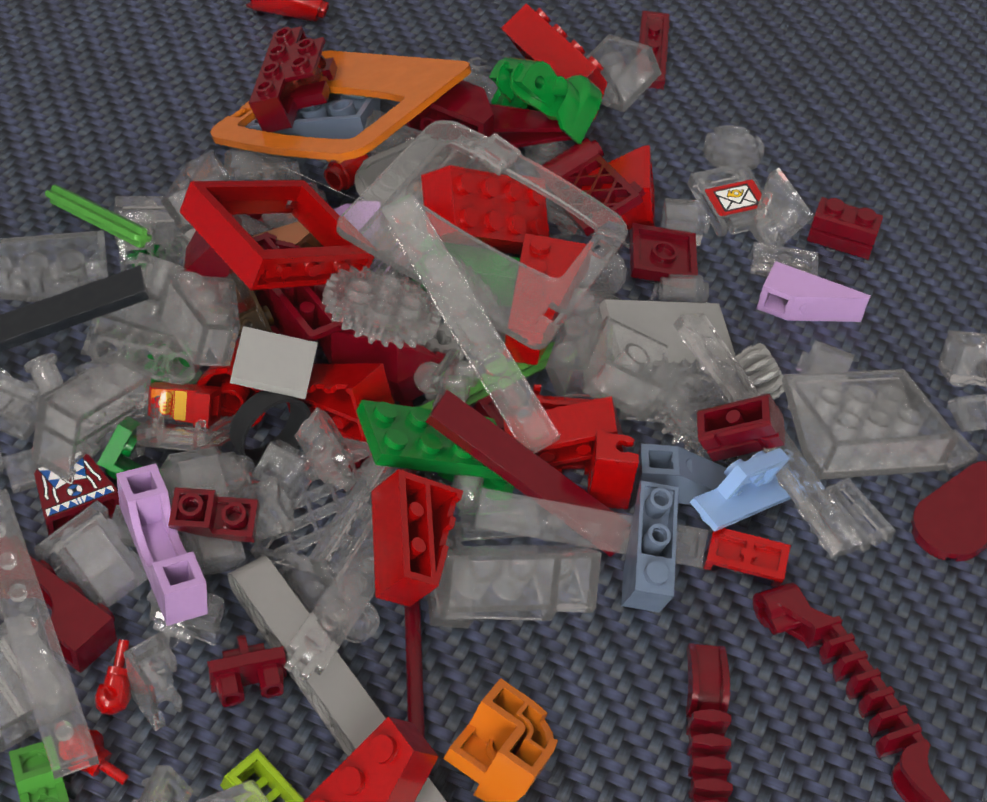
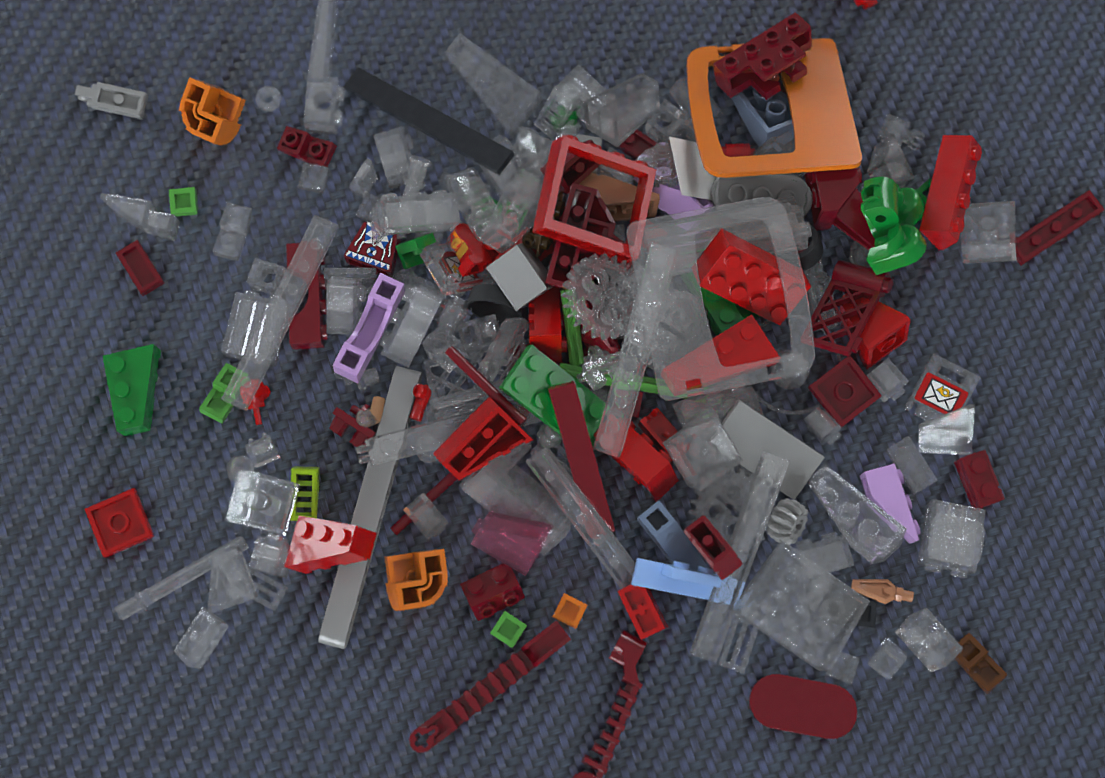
camera: 55 degrees right, 30 degrees up
(99, 216) = (547, 76): bright green axle -> none
(115, 692) = (292, 377): red piece -> none
(151, 678) = (304, 391): clear hinge -> none
(213, 516) = (407, 336): dark red slope -> none
(257, 631) = (373, 415): none -> arm
(293, 570) = (422, 395): none -> red arm
(334, 484) = (485, 385): none -> dark red bar
(350, 352) = (573, 335): none -> bright green axle
(436, 679) = (426, 516): none -> clear brick
(496, 154) = (780, 253): clear tile -> none
(553, 611) = (511, 539): none -> clear pink slope
(591, 687) = (492, 591): none -> dark red bracket
(612, 471) = (629, 494): red hinge -> none
(651, 549) = (596, 558): sand blue slope -> none
(654, 706) = (508, 629): none -> bright green plate
(680, 631) = (569, 611): none -> orange tile
(732, 146) = (999, 355): clear tile -> none
(830, 319) = (859, 519): none -> clear wedge
(893, 275) = (952, 538): none -> clear brick
(906, 360) = (881, 590): none -> nougat piece

